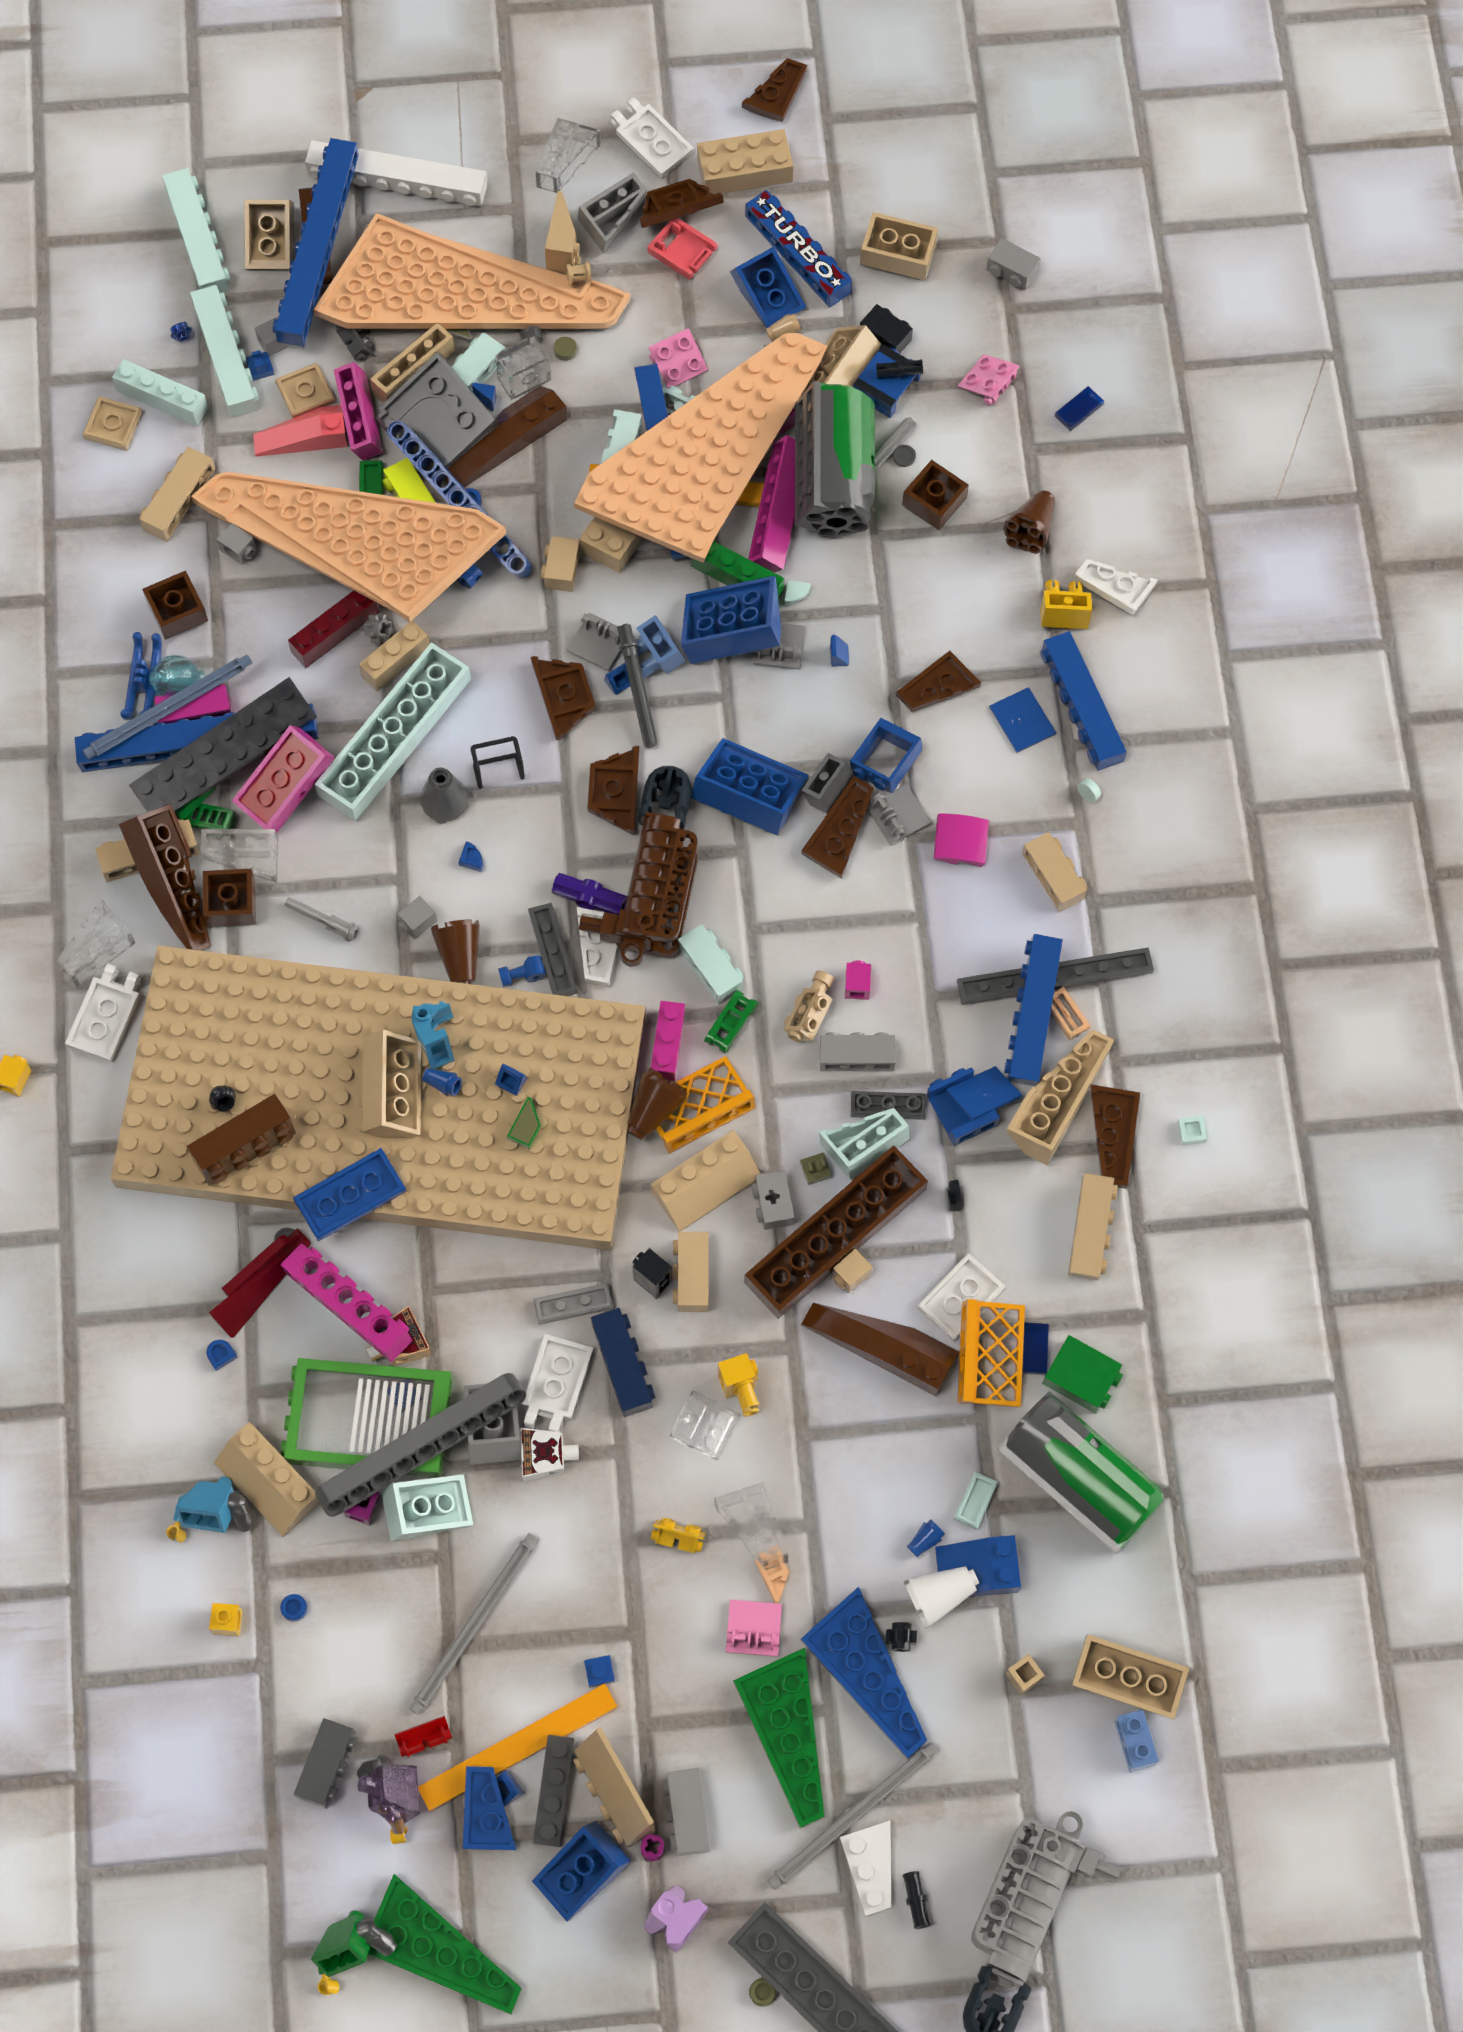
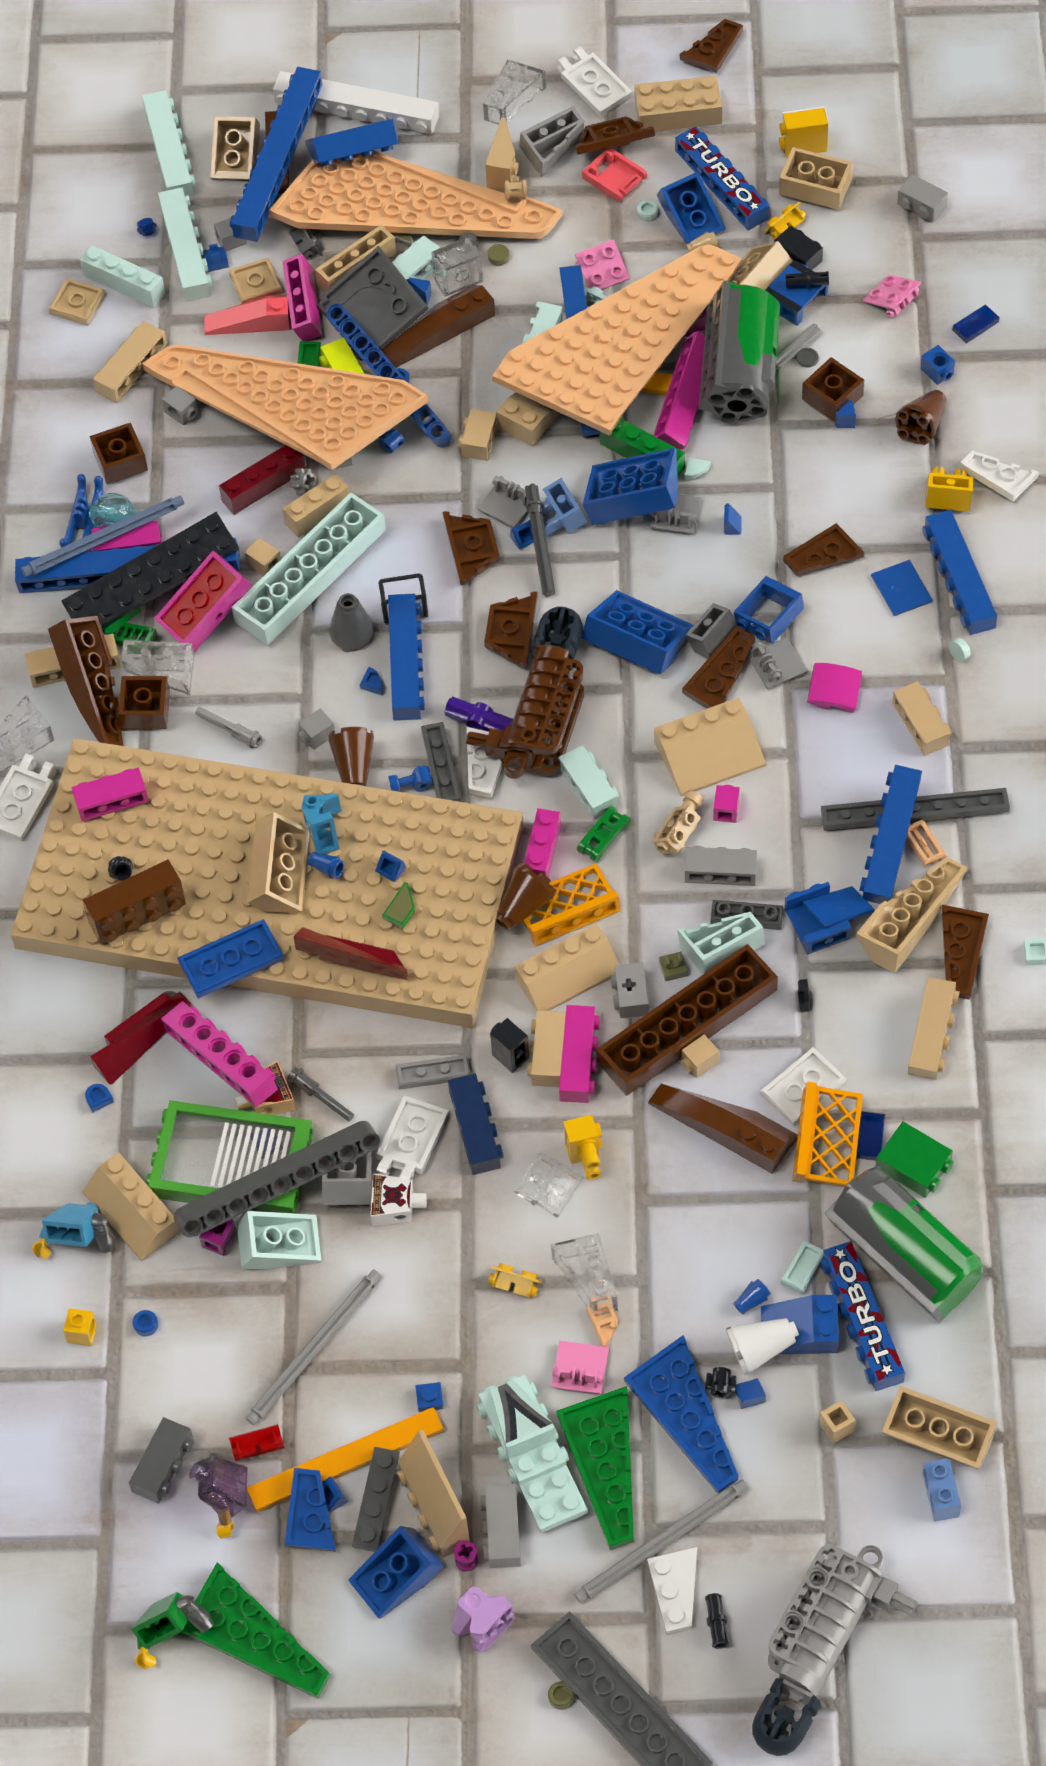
camera: 10 degrees right, 10 degrees down
(203, 1012) = (110, 794): none -> dark pink brick
(341, 719) = (261, 556): none -> tan brick
(397, 223) = (352, 141): none -> blue slope
(445, 1329) = (311, 1087): none -> dark grey pin
(476, 1181) = (350, 953): none -> dark red wedge
(503, 828) = (404, 657): none -> blue brick
(711, 1728) = (531, 1451): none -> light aqua wedge
(721, 289) = (647, 211): none -> light aqua tile
(723, 1276) = (577, 1054): none -> dark pink brick
(835, 916) = (709, 746): none -> tan slope
(875, 290) = (791, 215): none -> yellow hinge
(883, 191) = (804, 130): none -> yellow piece
(931, 1644) = (750, 1393): none -> blue slope
(951, 524) = (846, 416): none -> blue slope
(1042, 1553) = (863, 1316): none -> brick
(1043, 451) = (937, 365): none -> blue brick

